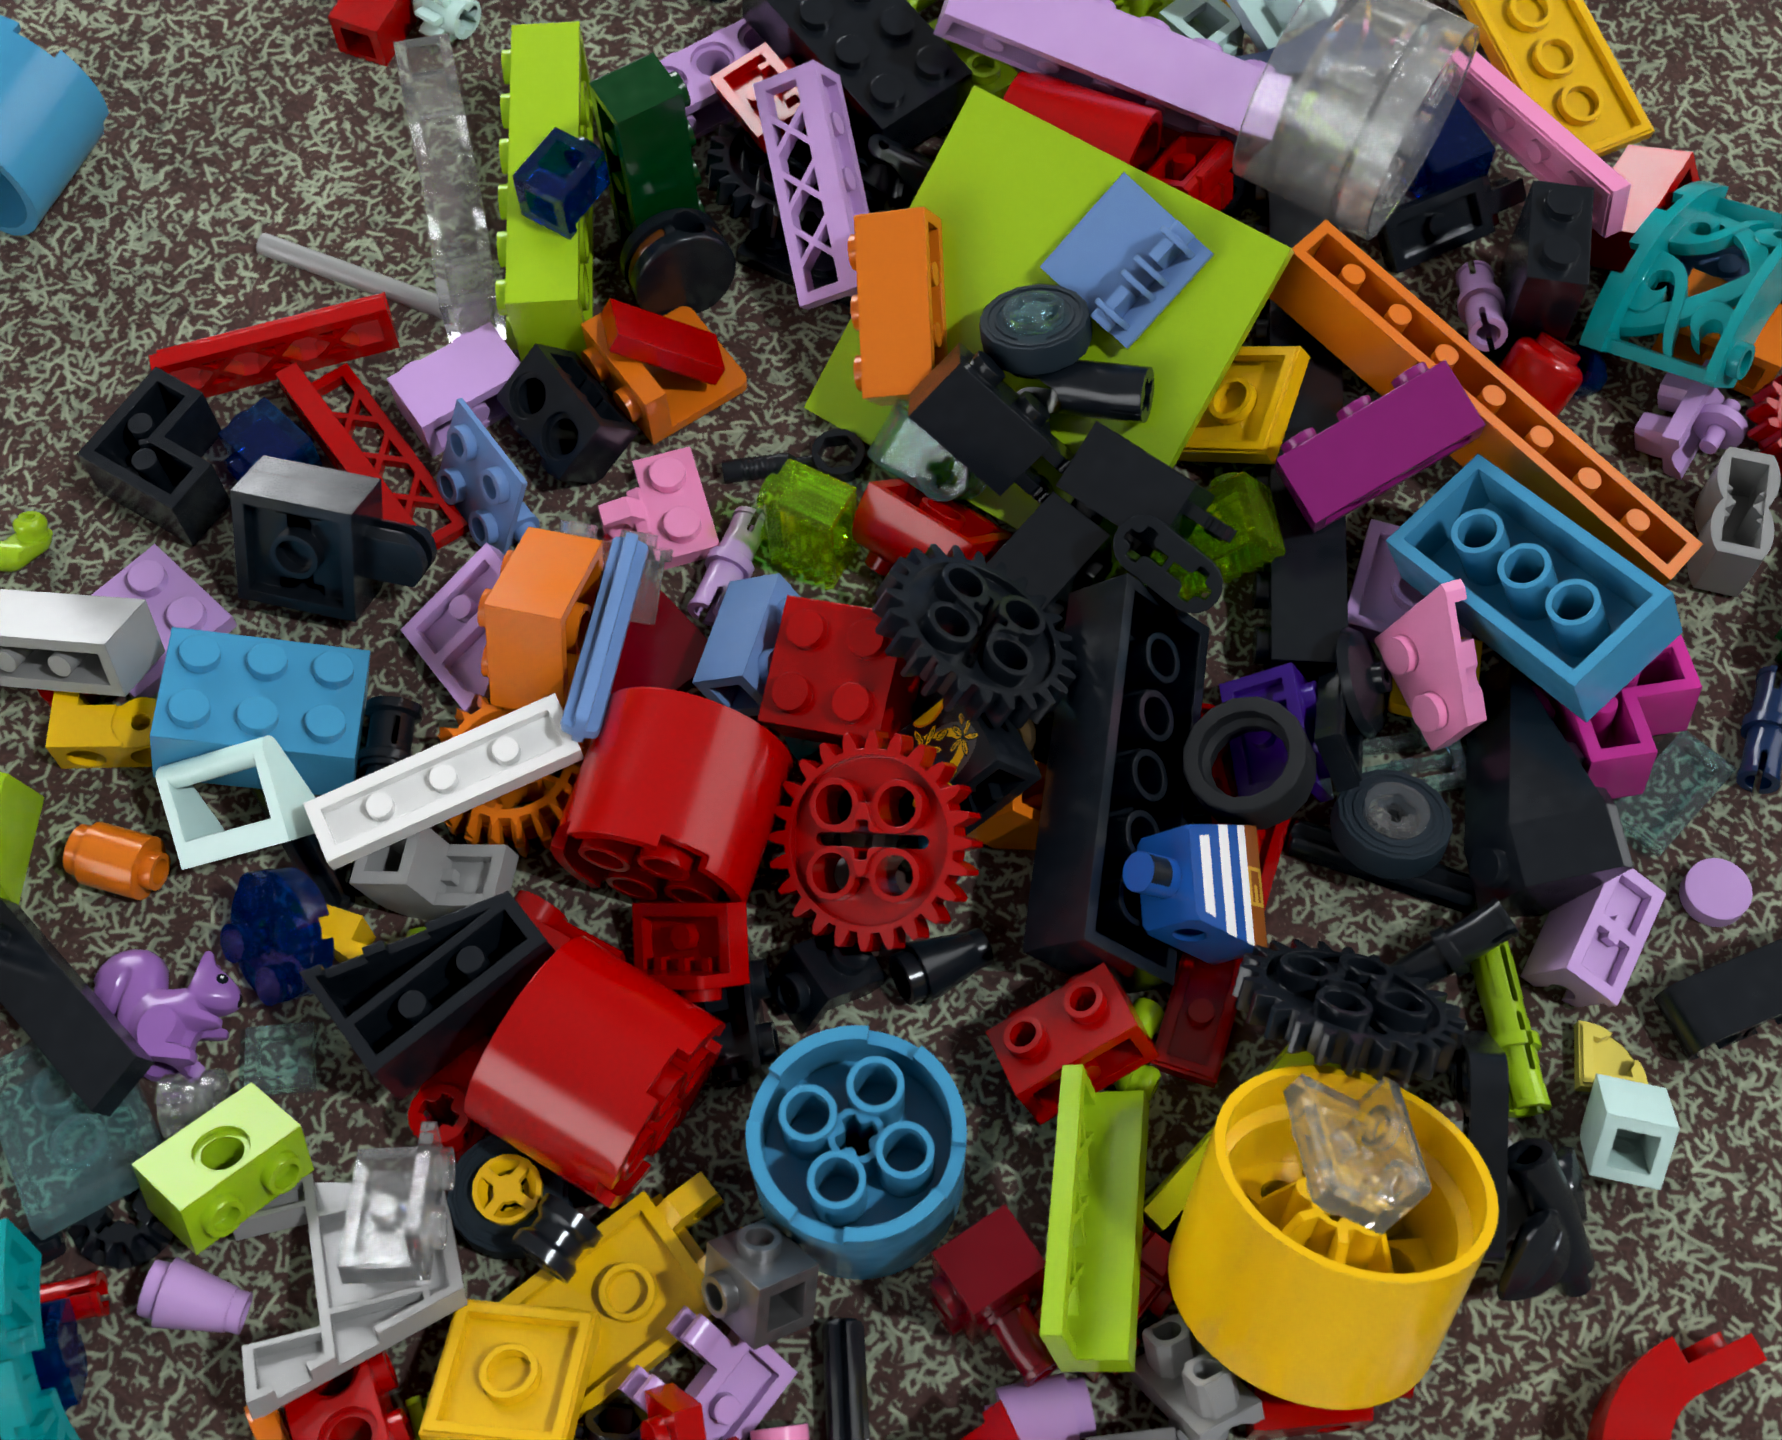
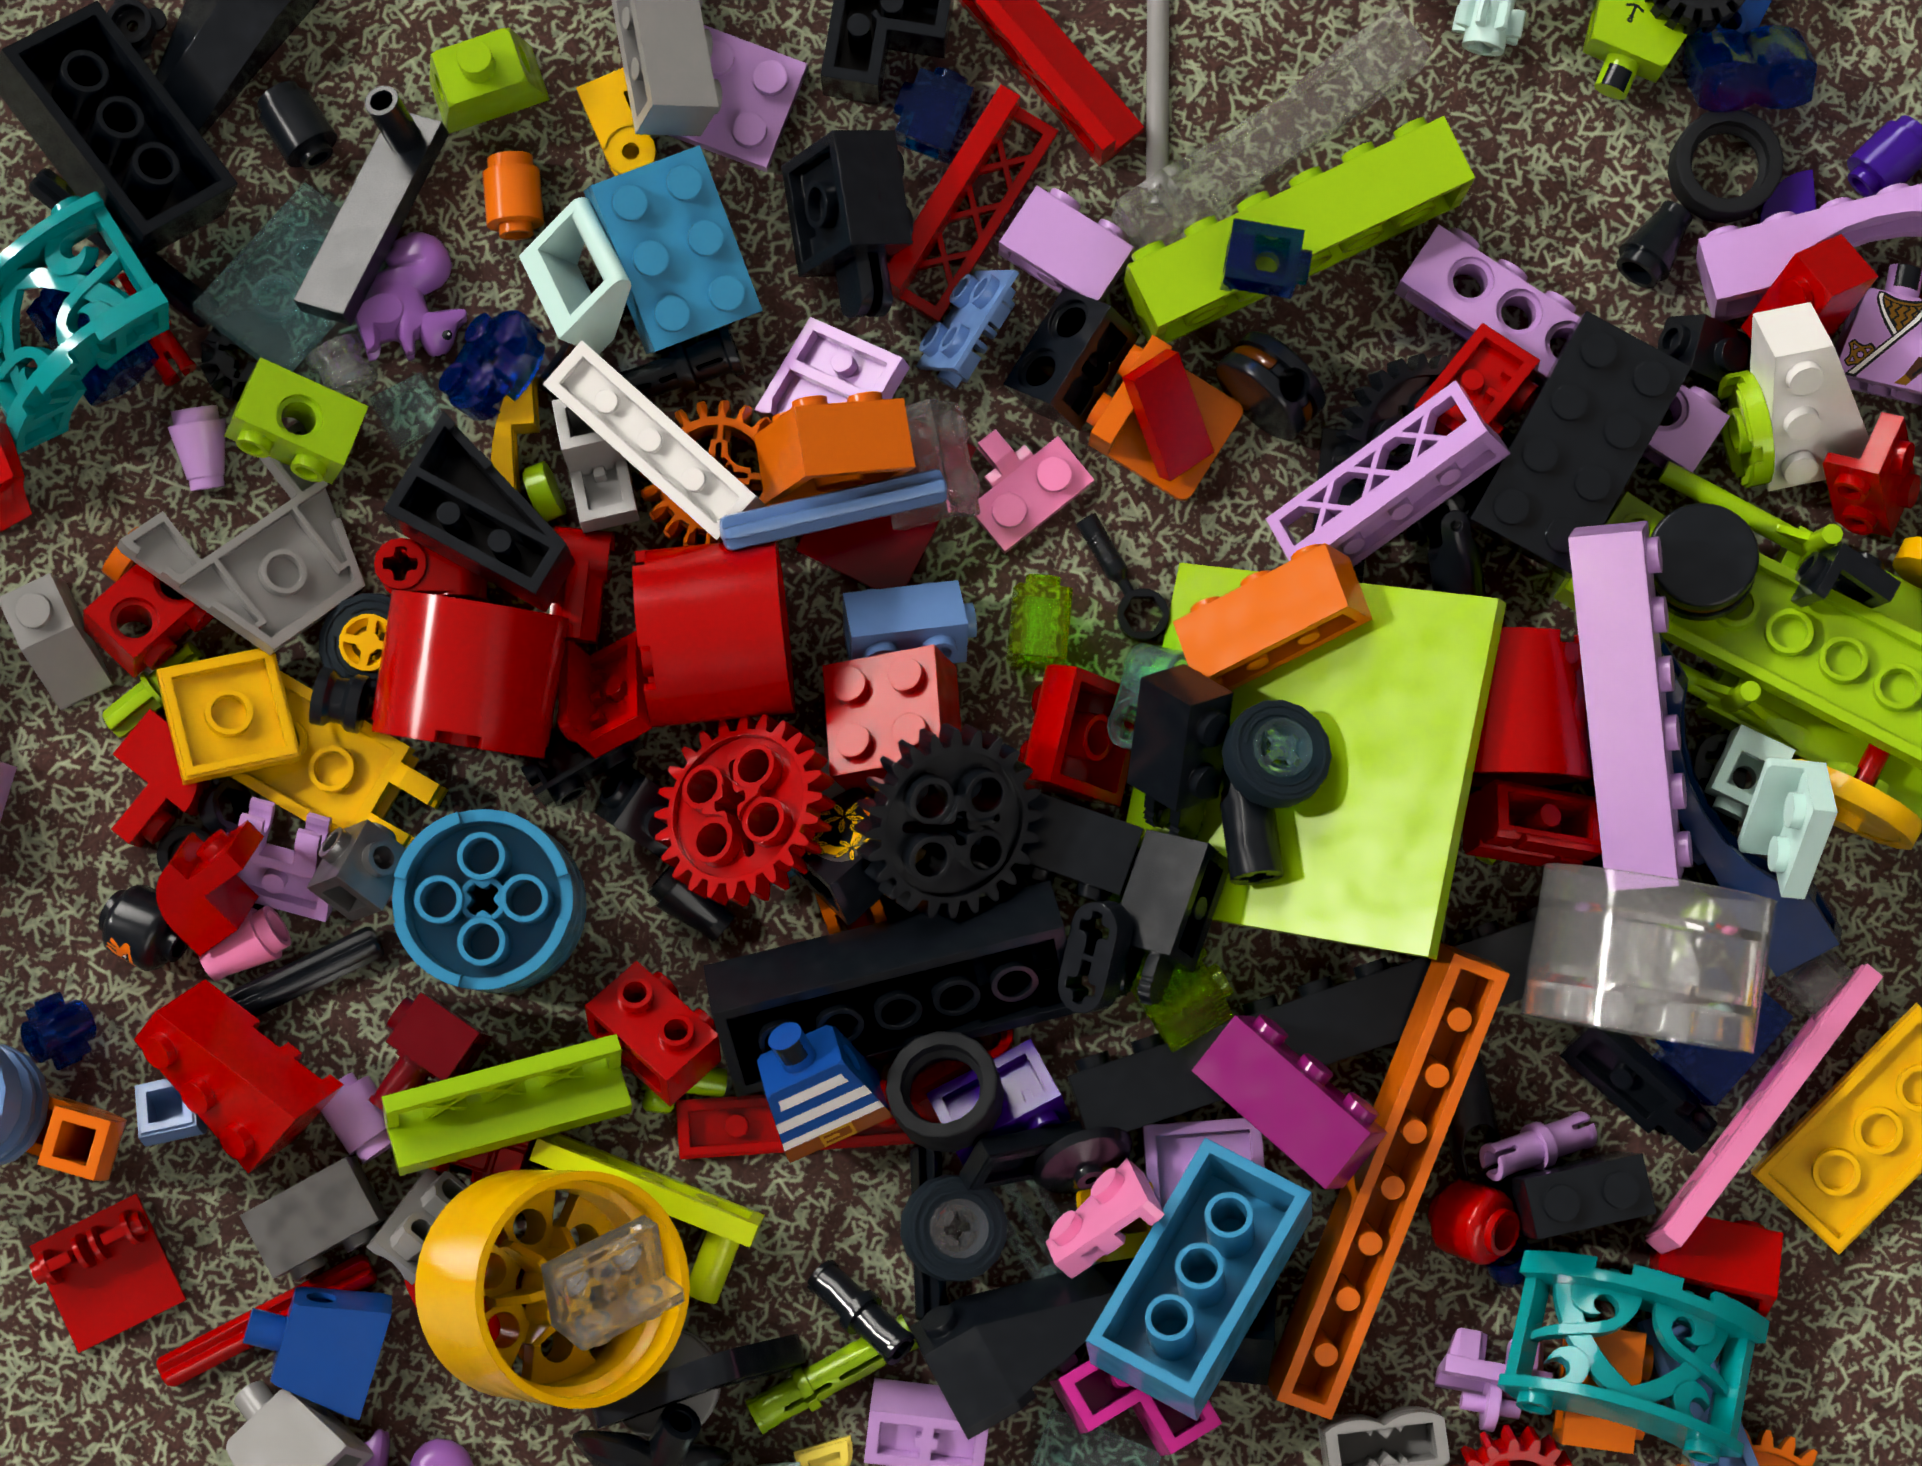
camera: 65 degrees right, 20 degrees up
(397, 1211) = (308, 570): clear bracket -> none
(645, 141) = (1335, 321): dark green brick -> none
(727, 563) = (986, 567): lavender pin -> none
(1127, 260) = (1370, 810): medium blue hinge -> none
(1250, 407) = (1322, 975): yellow tile -> none
(1349, 1010) = (749, 1244): black gear -> none

